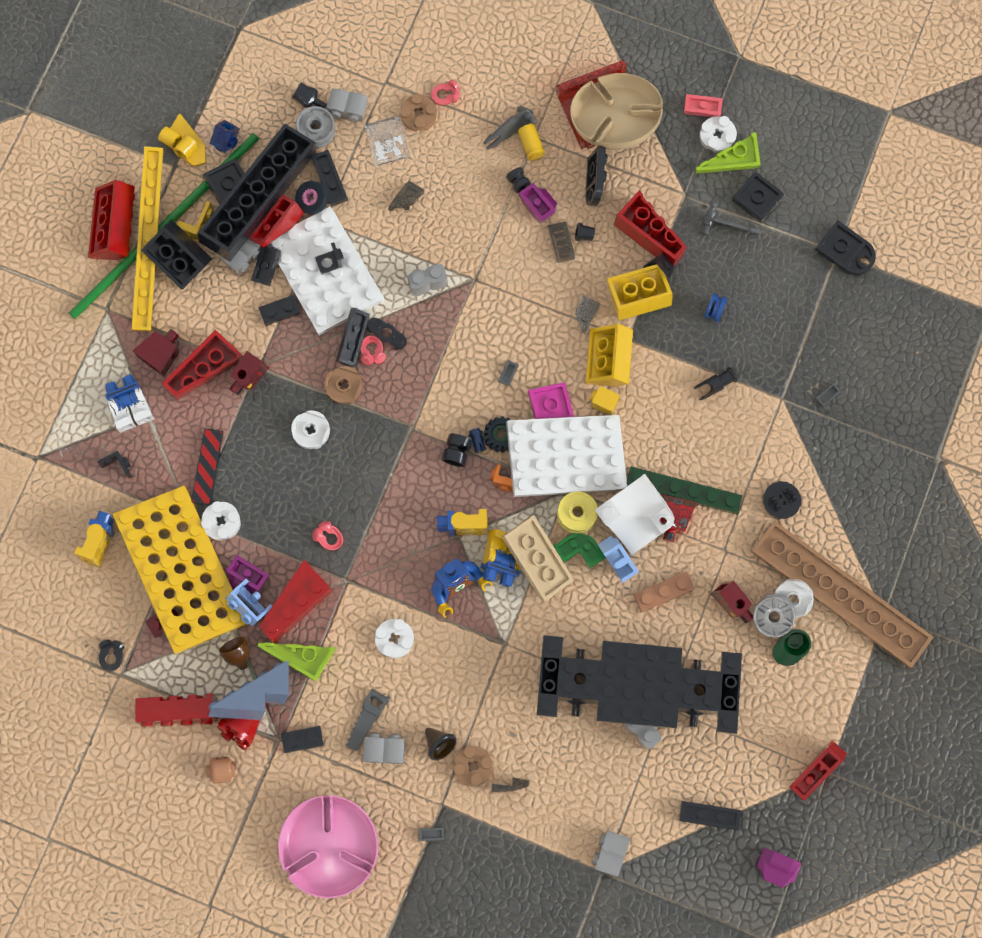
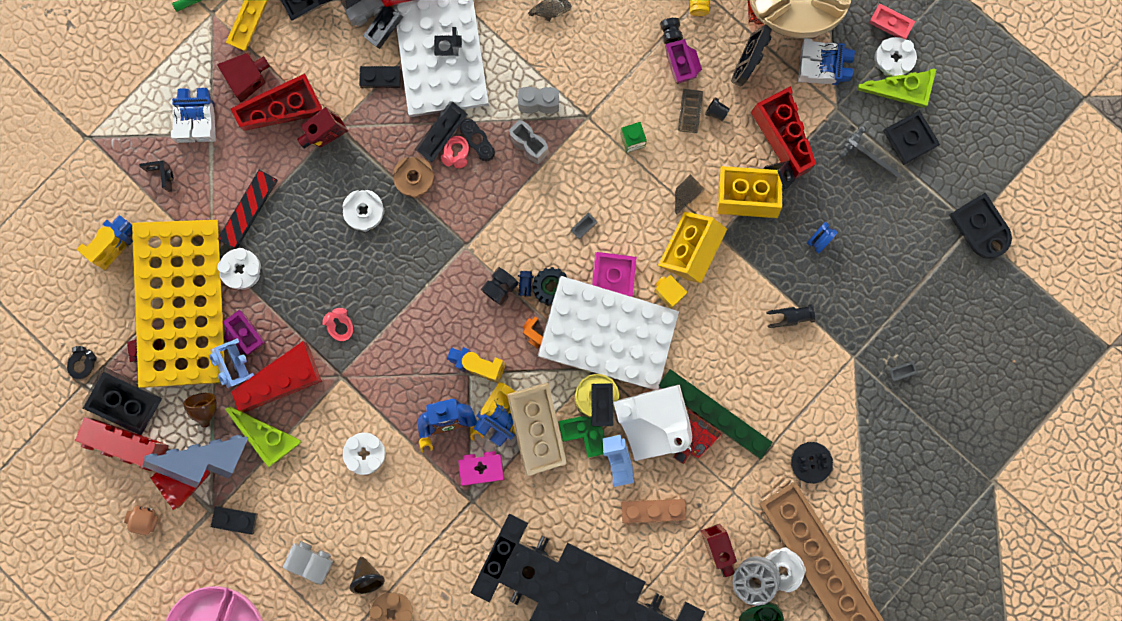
camera: 25 degrees right, 5 degrees up
(161, 673) = (121, 401): none -> black slope
(366, 719) = (305, 524): dark grey piece -> none
(430, 317) = (524, 139): none -> light grey brick
(497, 621) = (468, 468): none -> dark pink brick
(521, 281) = (633, 137): none -> green brick
(585, 516) = (602, 404): none -> black plate
(659, 160) = (824, 62): none -> hips

